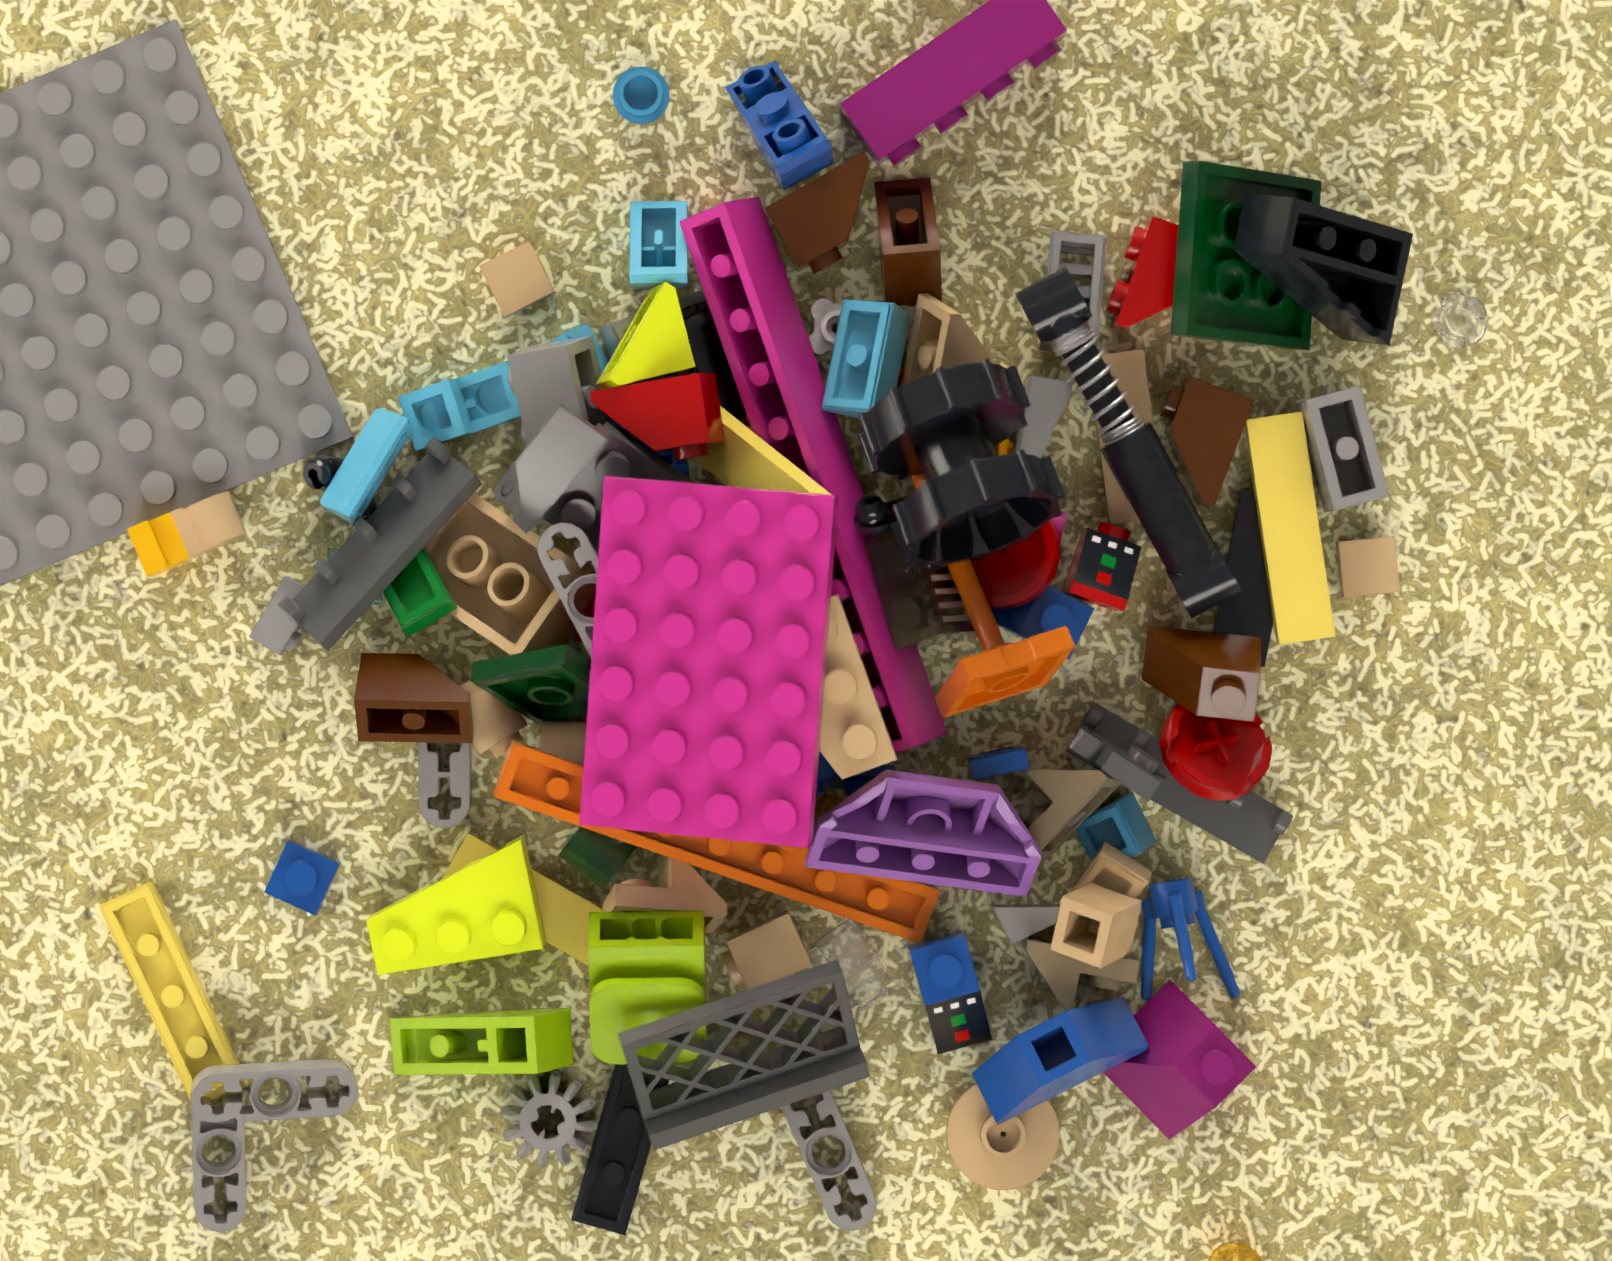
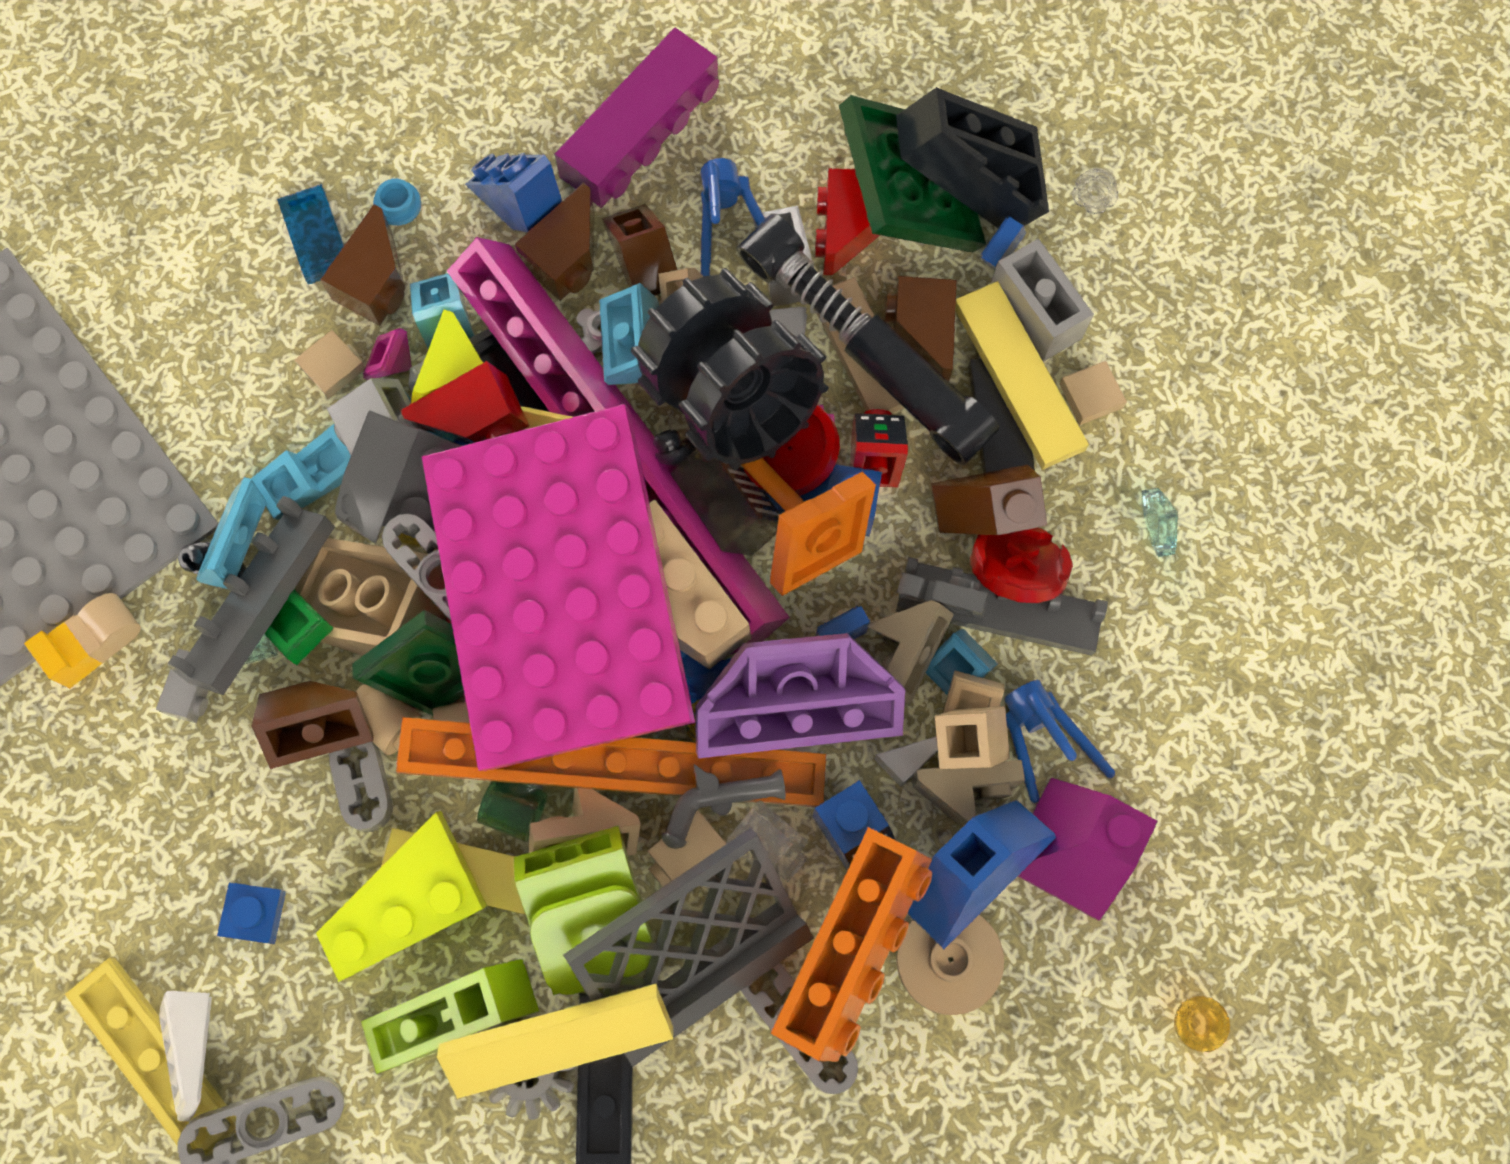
camera: 15 degrees left, 15 degrees down
(217, 992) = (184, 1033): none -> white slope
(535, 106) = (312, 230): none -> tile
(584, 291) = (389, 355): none -> dark pink slope
(587, 1107) = (555, 1041): none -> light yellow tile
(590, 181) = (367, 270): none -> reddish brown slope
(816, 911) = (720, 798): none -> dark grey piece
(905, 1102) = (852, 947): none -> orange brick
(1020, 193) = (720, 191): none -> blue plant
(1325, 364) = (1003, 242): none -> blue tile
(1386, 739) = (1161, 521): none -> clear light blue tile

